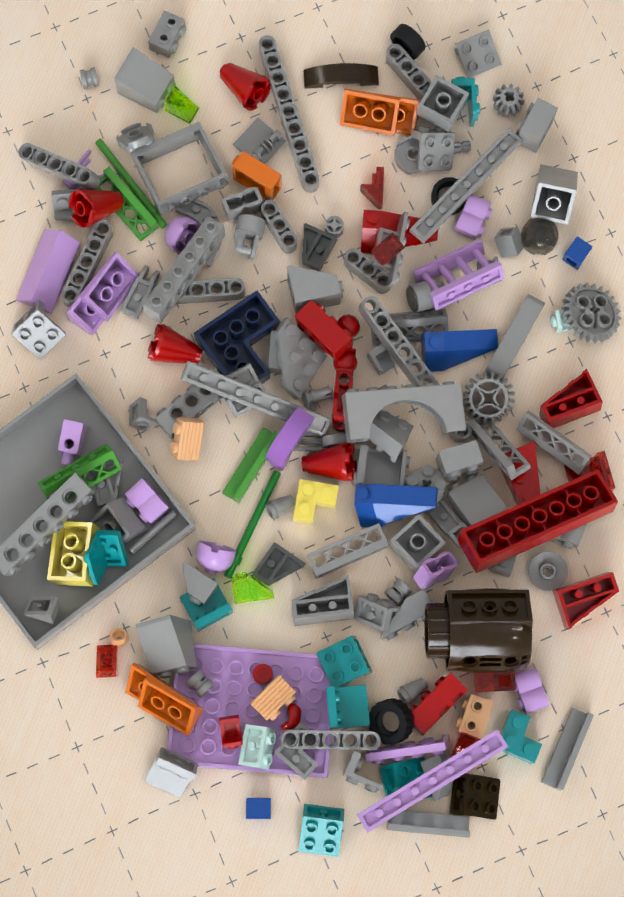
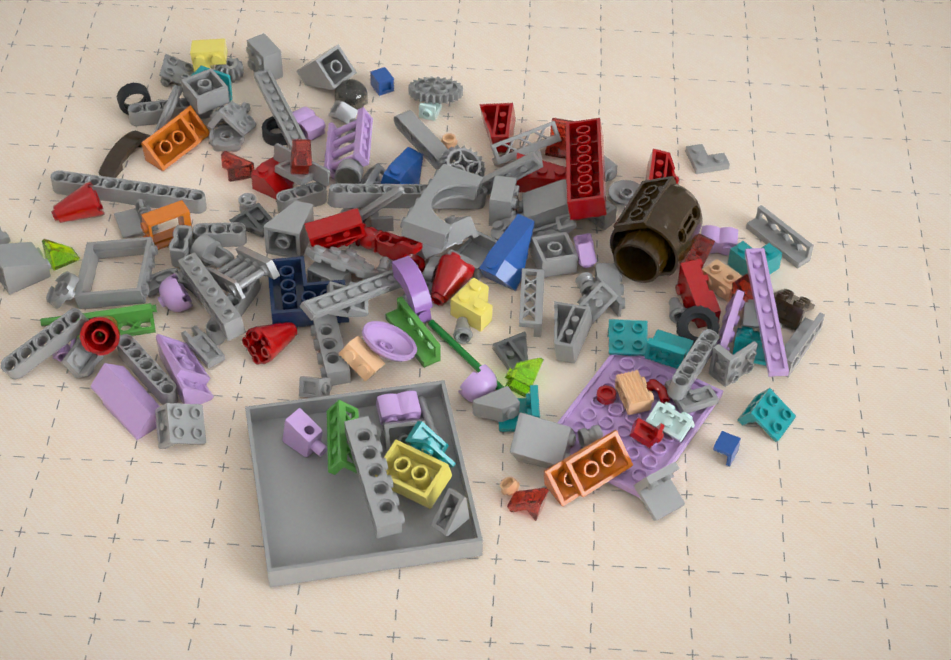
camera: 60 degrees left, 30 degrees down
(228, 456) = (389, 341): none -> lavender dish
(239, 290) = (243, 271): none -> light grey fence
(378, 350) = (381, 202): none -> light grey axle
(404, 84) = (169, 107): none -> light grey axle
(503, 72) = (208, 53): none -> light yellow brick
(528, 368) = (449, 140): none -> light nougat plate

